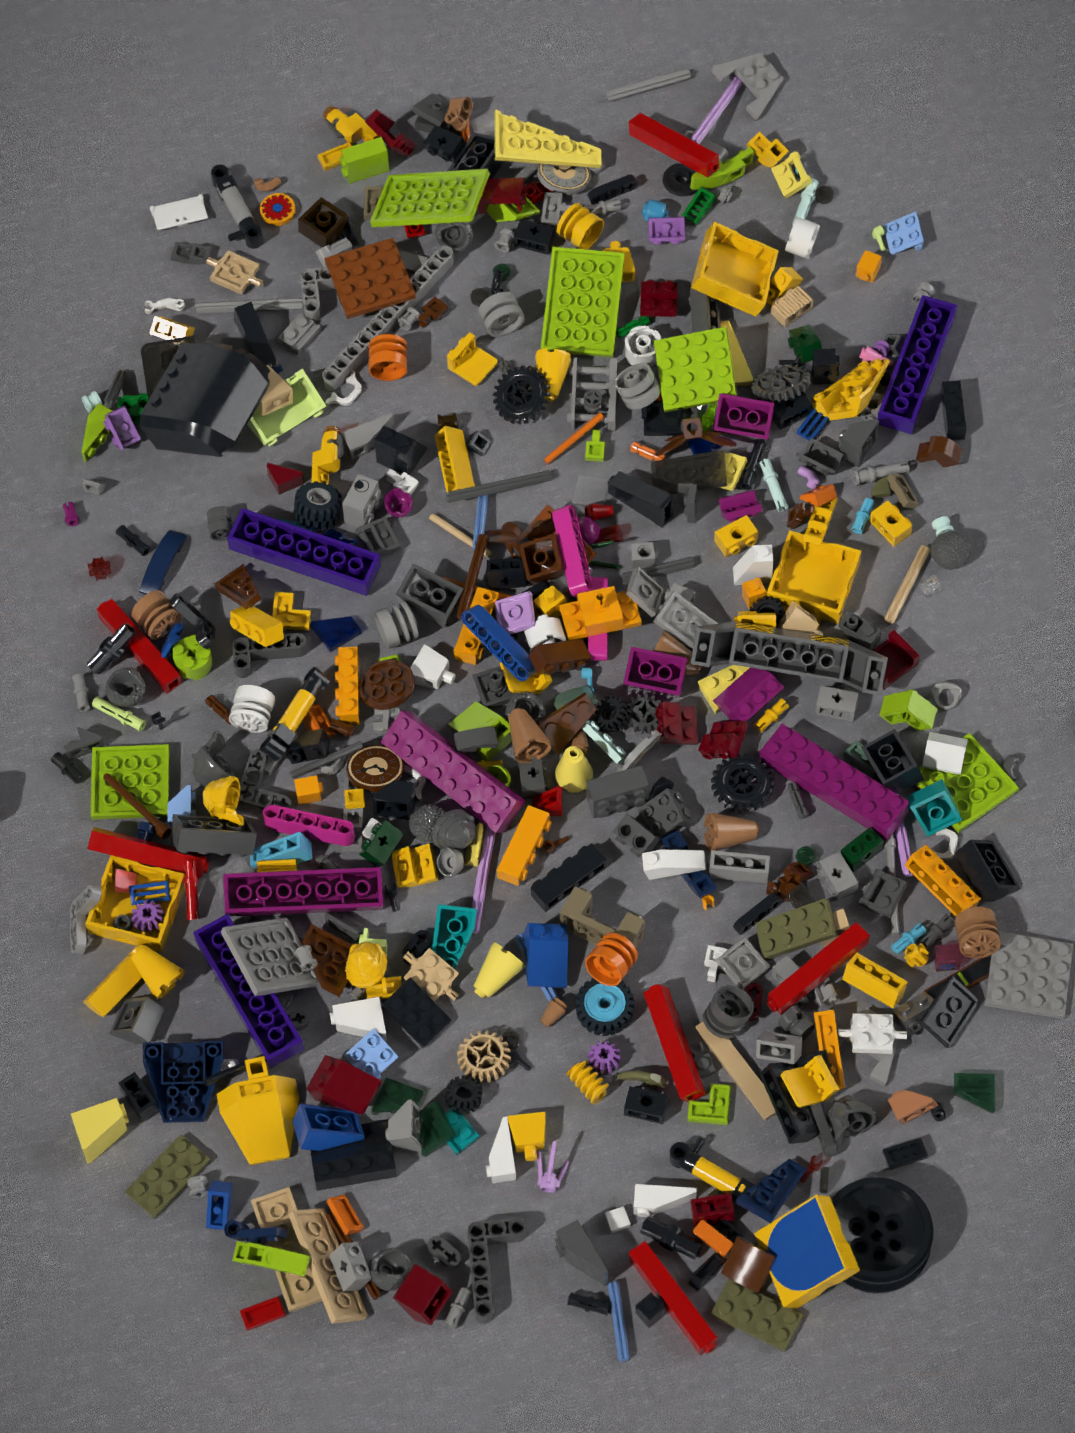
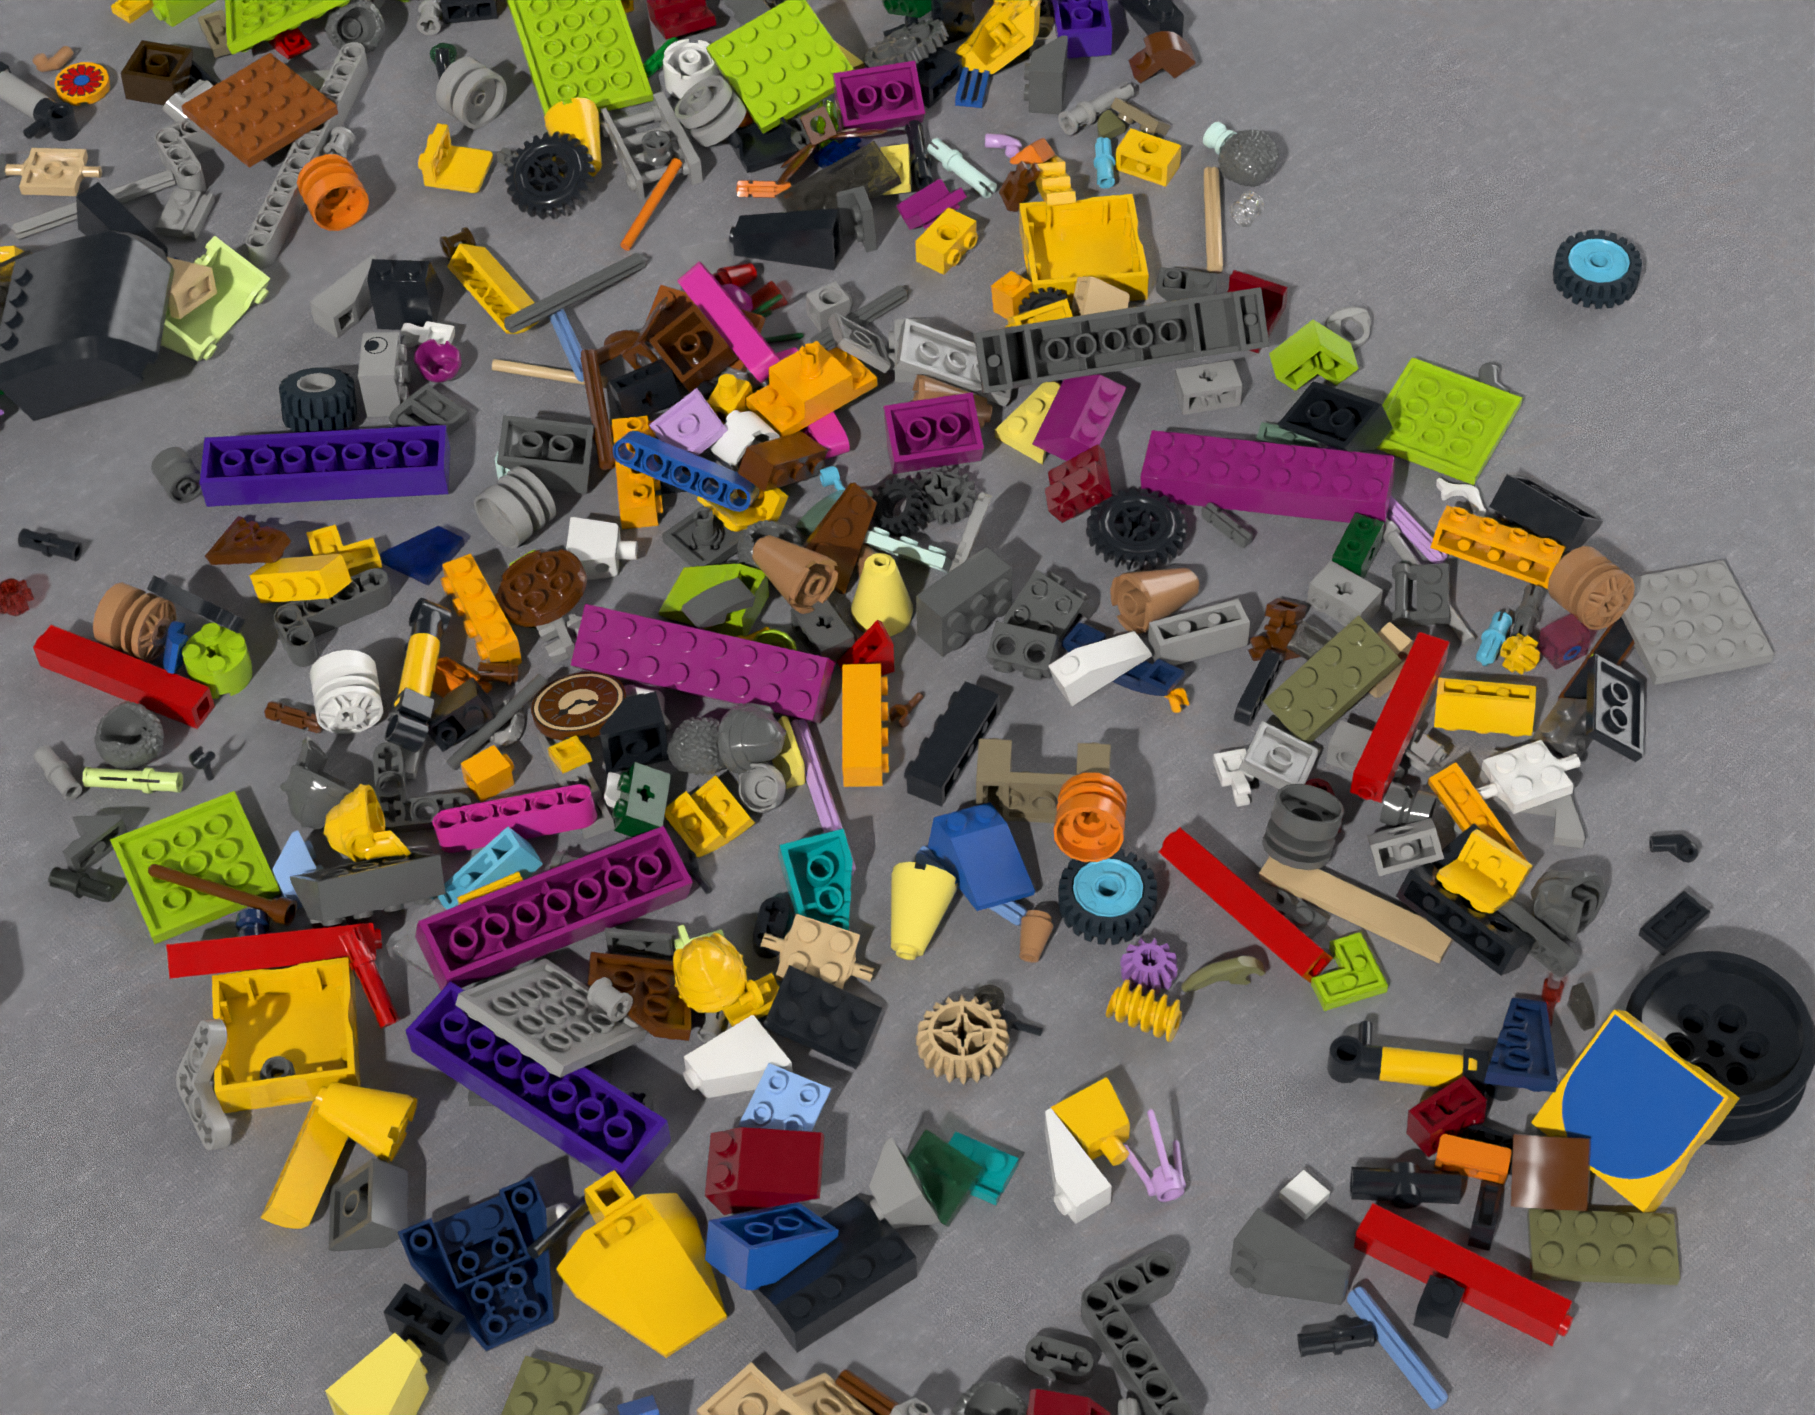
camera: 25 degrees left, 10 degrees down
(111, 648) = (82, 689): black piece -> none
(123, 880) = (252, 1010): coral slope -> none
(147, 910) = (314, 1045): medium lavender gear -> none
(161, 561) = (108, 553): dark blue slope -> none
(166, 890) = (275, 1024): blue tile -> none
(284, 478) = (248, 388): dark red slope -> none
(328, 458) = (304, 339): yellow plate -> none
(334, 399) = (296, 269): white helmet -> none
(345, 1214) = (866, 1368): orange tile -> none
(394, 1096) = (851, 1156): clear green wing -> none
(432, 310) = (367, 124): reddish brown plate -> none
(464, 1104) = (962, 1120): black tyre -> none
(477, 443) = (515, 256): black slope -> none
(478, 296) = (425, 91): clear smoke tile -> none
(595, 448) = (687, 207): lime plate -> none
(654, 1112) = (1240, 1021): black brick -> none
(657, 1199) = (1348, 1137): white slope -> none
(660, 786) = (1022, 573): black slope -> none
(677, 723) = (1004, 482): dark red plate -> none
(754, 564) = (997, 253): white slope -> none
(771, 715) = (1124, 434): yellow pin -> none
(805, 855) = (1281, 588): clear green plate -> none
(824, 457) = (1008, 114): dark grey bracket -> none
(910, 1105) = (1642, 850): nougat slope -> none
(934, 807) = (1429, 458): teal slope -> none
(945, 753) = (1400, 389): white slope -> none
(976, 1089) = (1718, 796): clear green wing -> none

